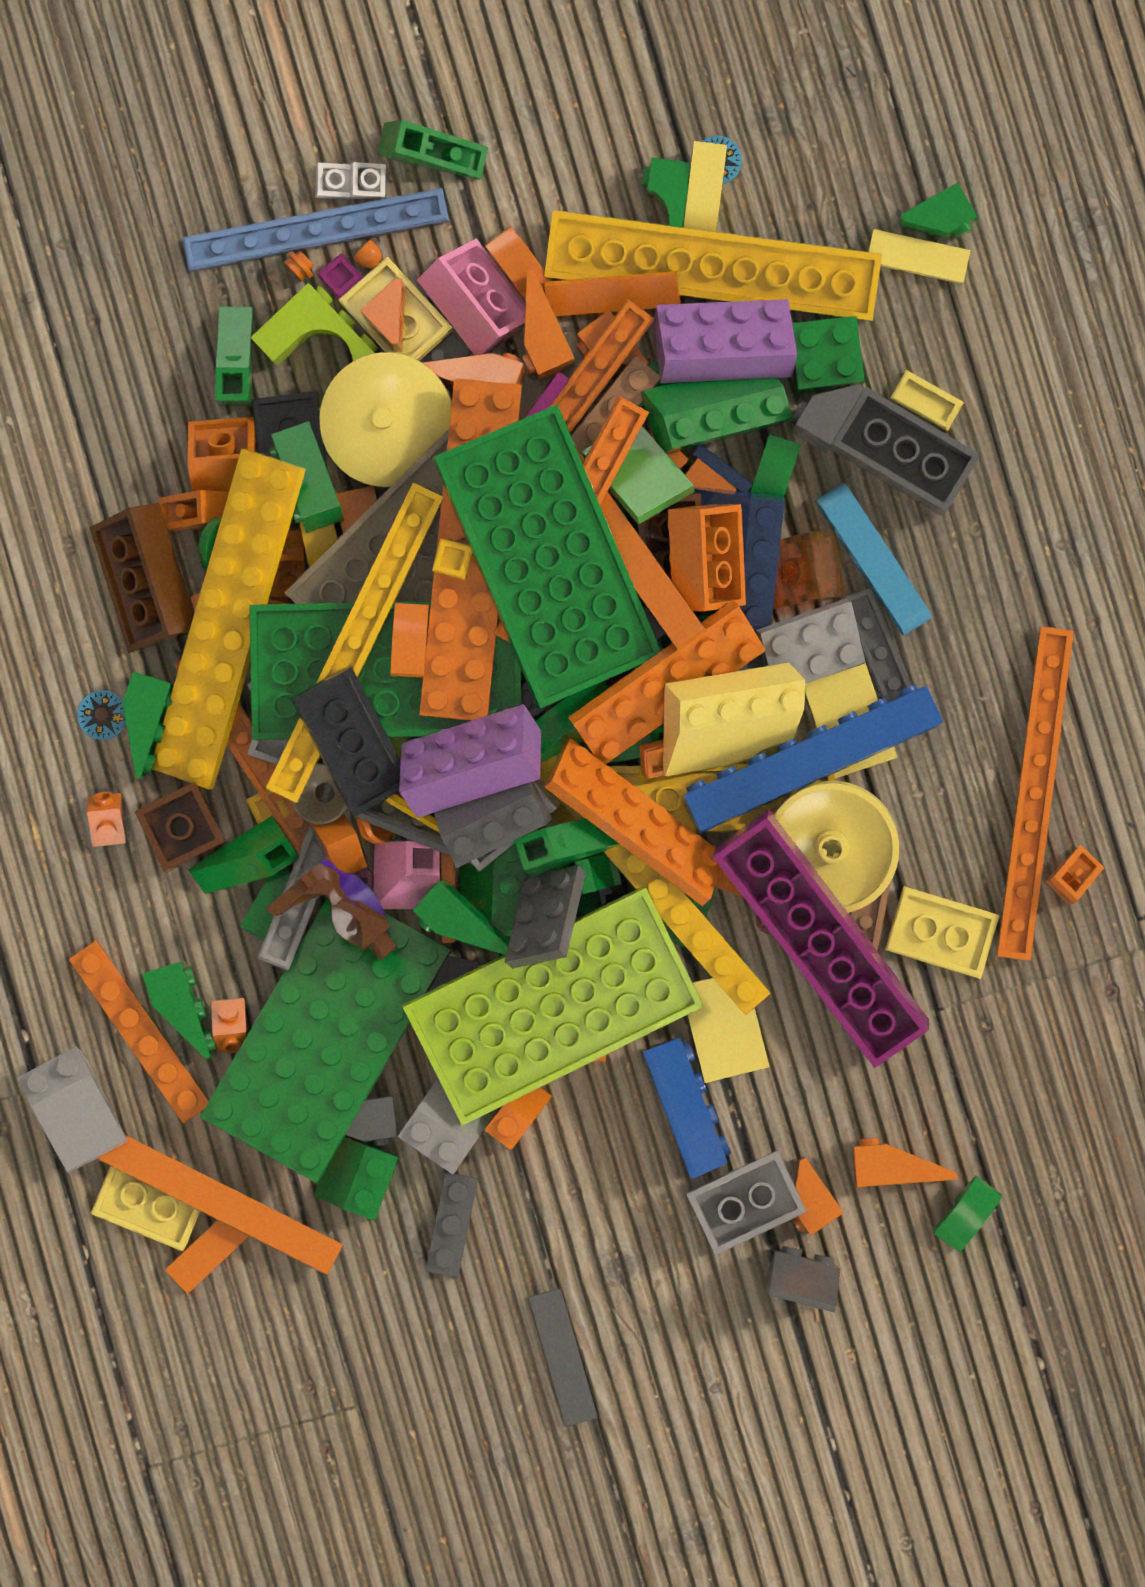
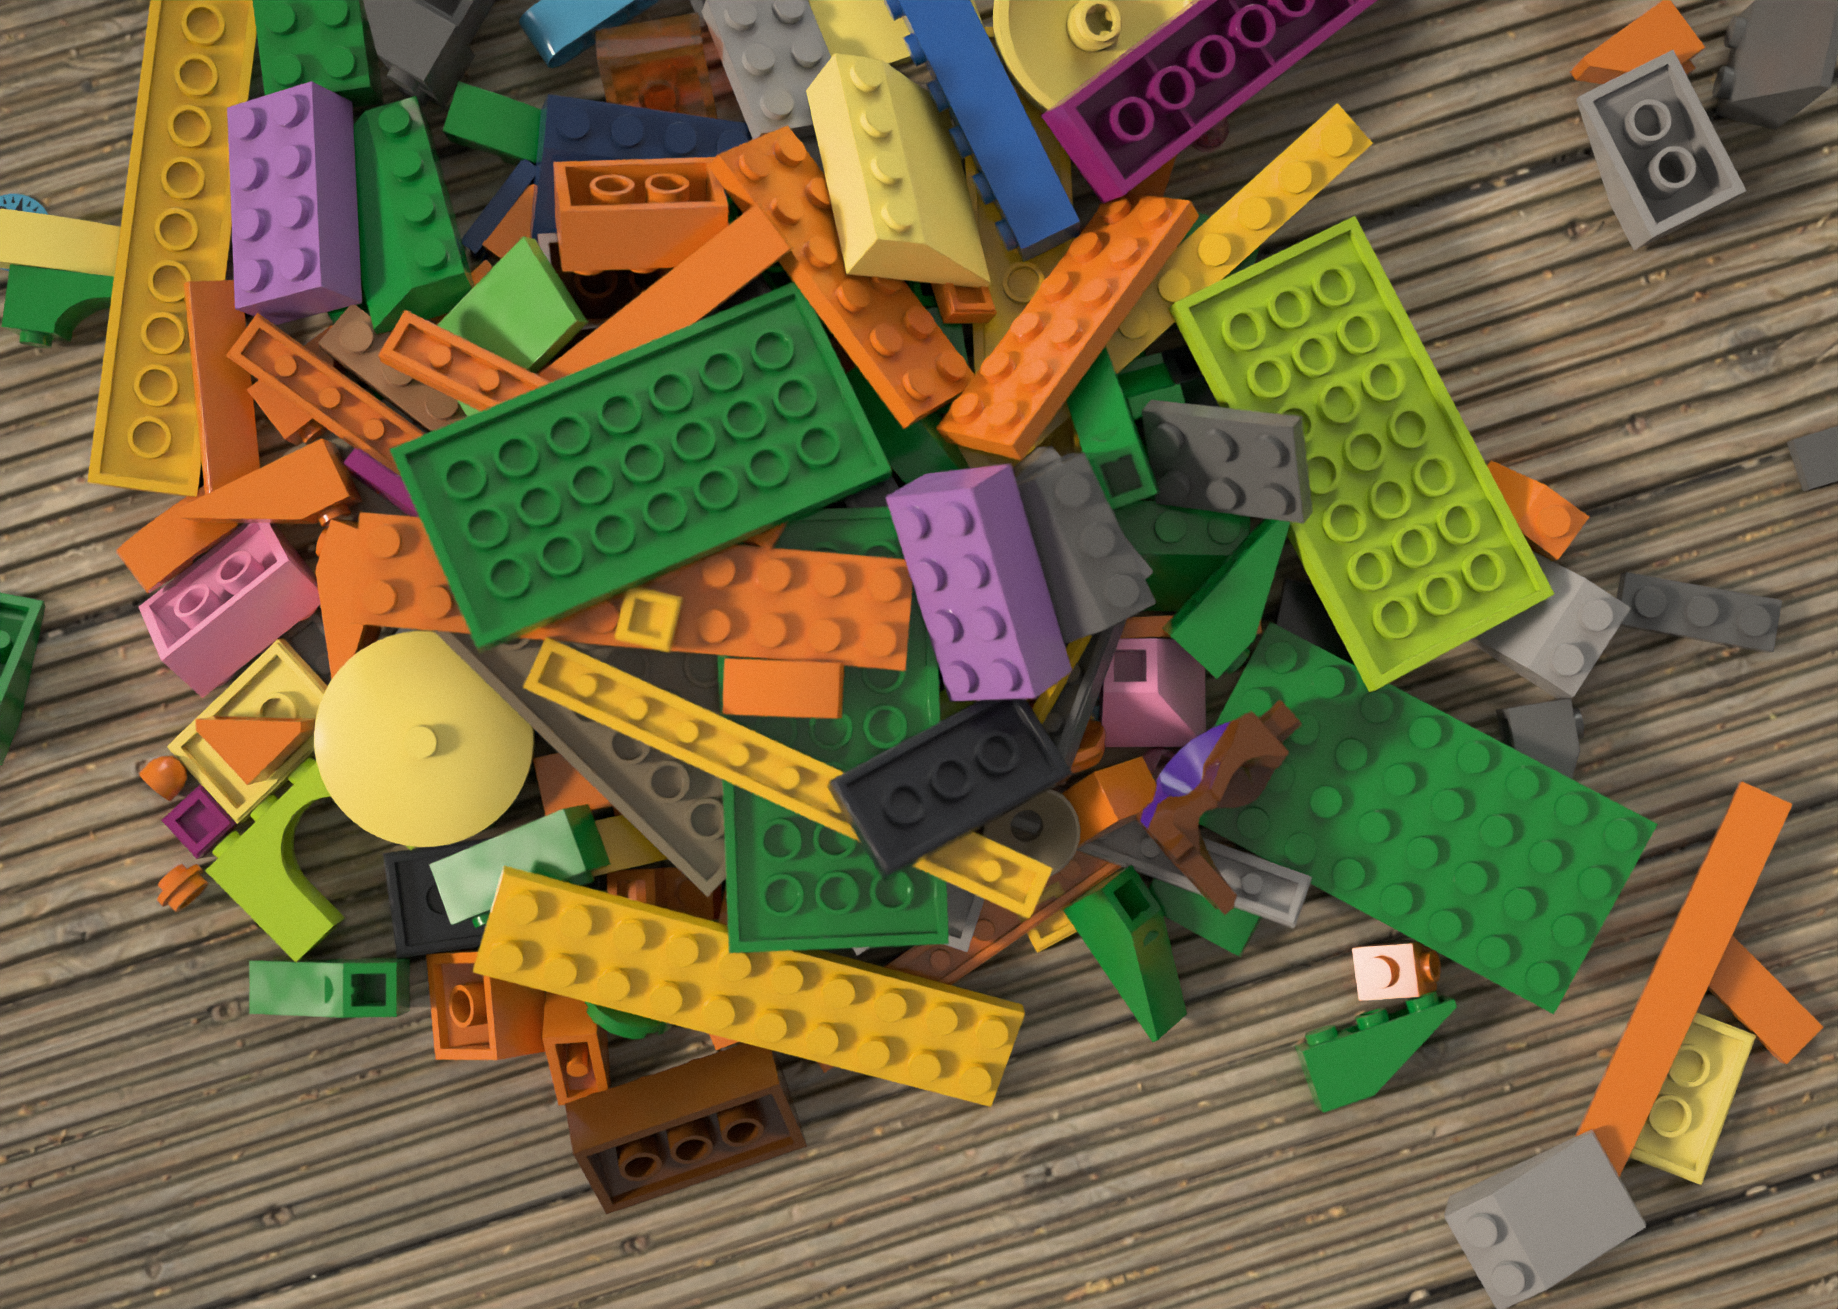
camera: 85 degrees left, 0 degrees up
(101, 715) = (906, 1185): piece -> none
(106, 819) = (1073, 1175): orange bracket -> none
(139, 1031) = (1409, 1112): orange plate -> none
(144, 713) = (906, 1119): green slope -> none
(180, 827) = (1087, 1056): reddish brown brick -> none
(315, 229) = (125, 863): medium blue tile -> none
(350, 181) = (47, 808): white slope -> none
(357, 1178) = (1637, 757): green slope -> none
(685, 1108) = (1508, 248): blue slope -> none
(724, 1036) = (1393, 189): light yellow tile -> none

